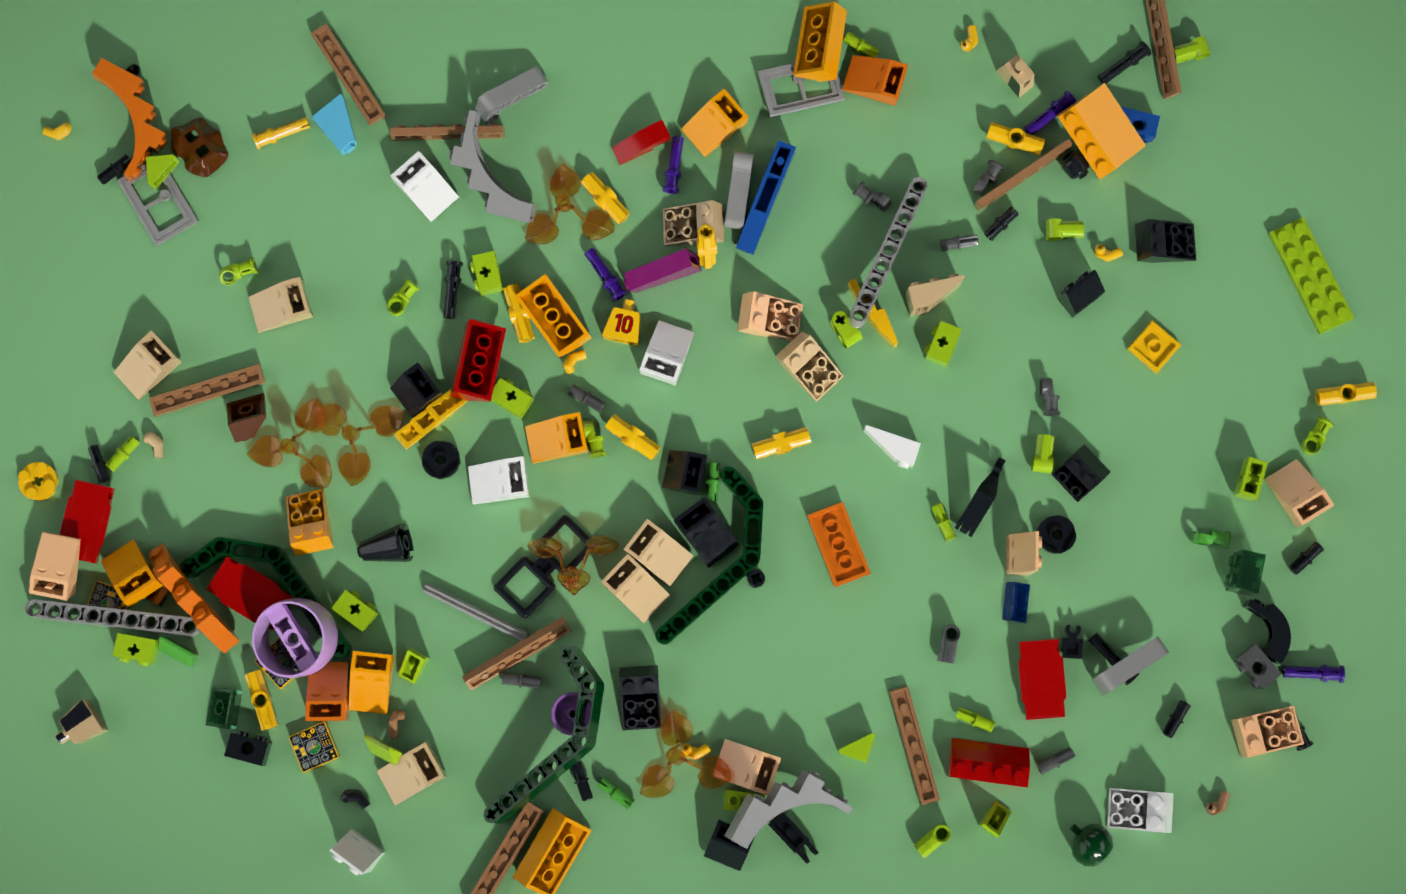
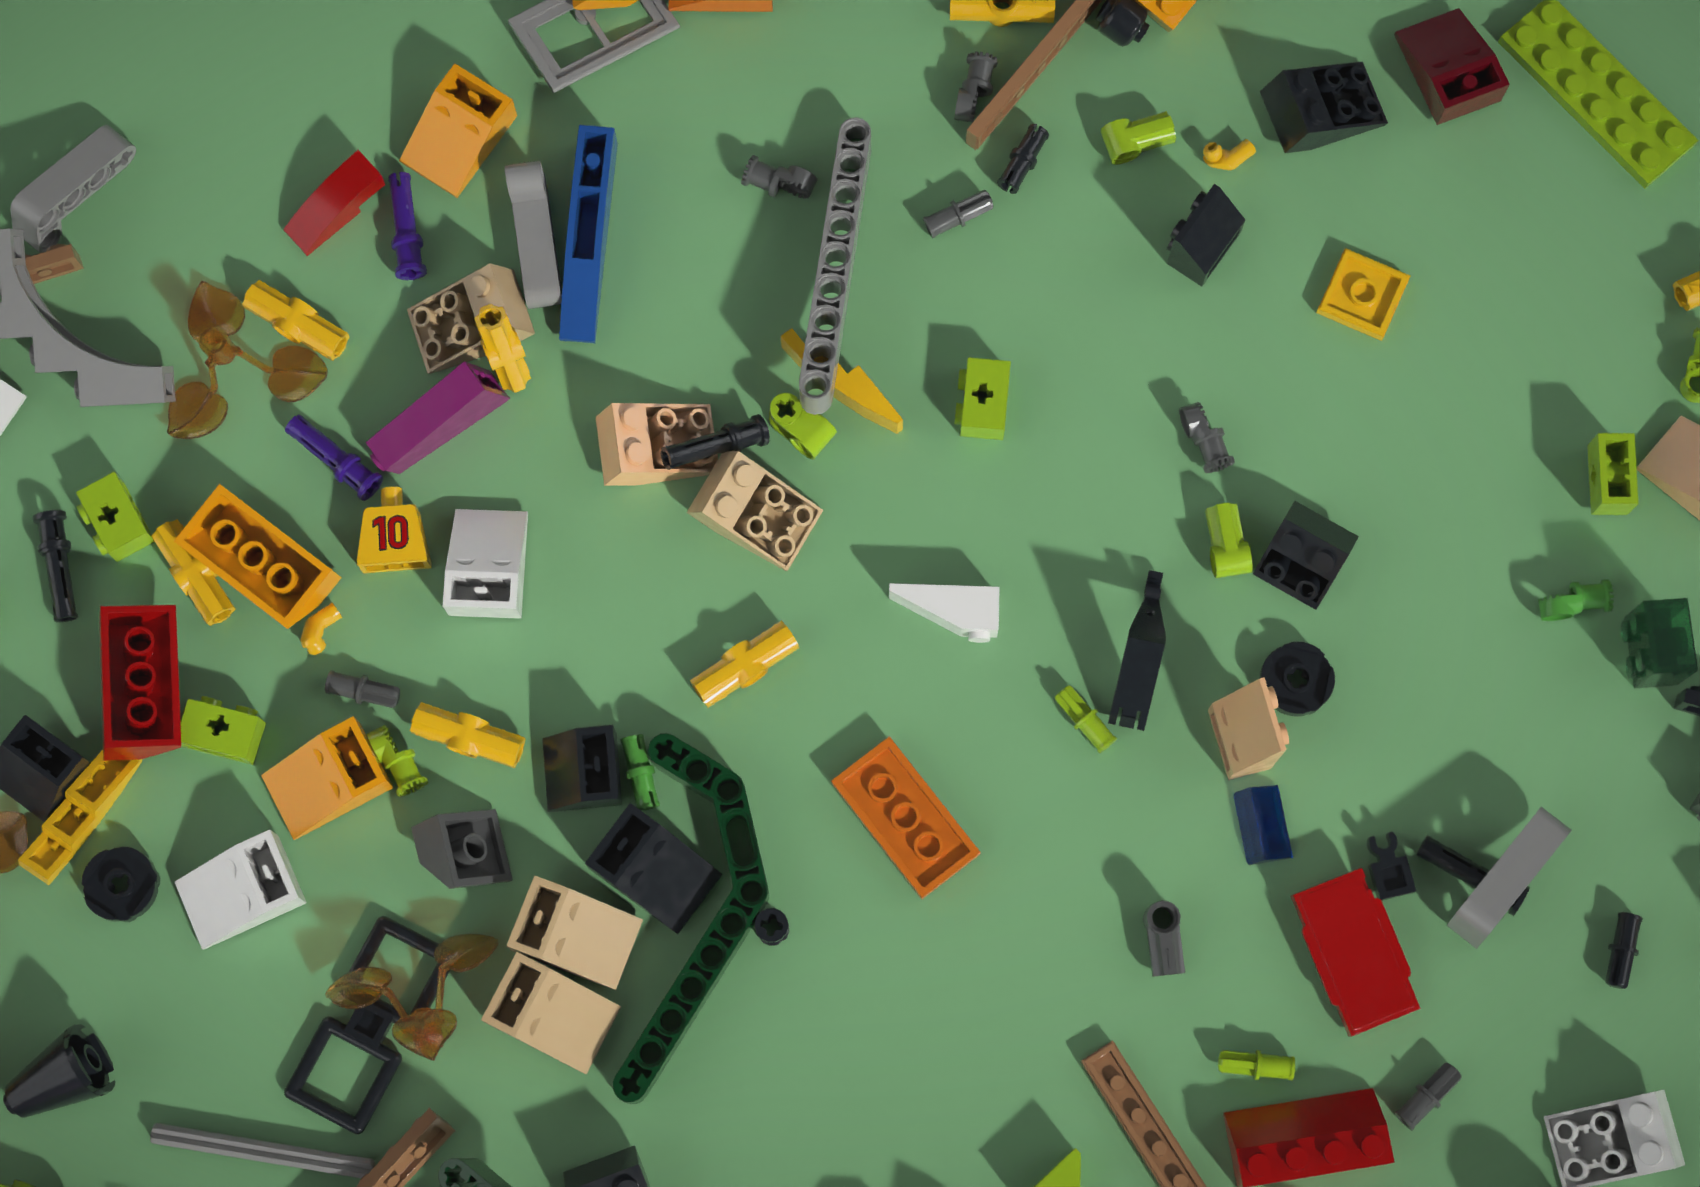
camera: 15 degrees left, 5 degrees down
(614, 494) = (463, 848): none -> dark grey slope
(808, 326) = (729, 438): none -> black pin
(924, 297) = (928, 322): tan slope -> none
(1239, 240) = (1452, 65): none -> dark red slope

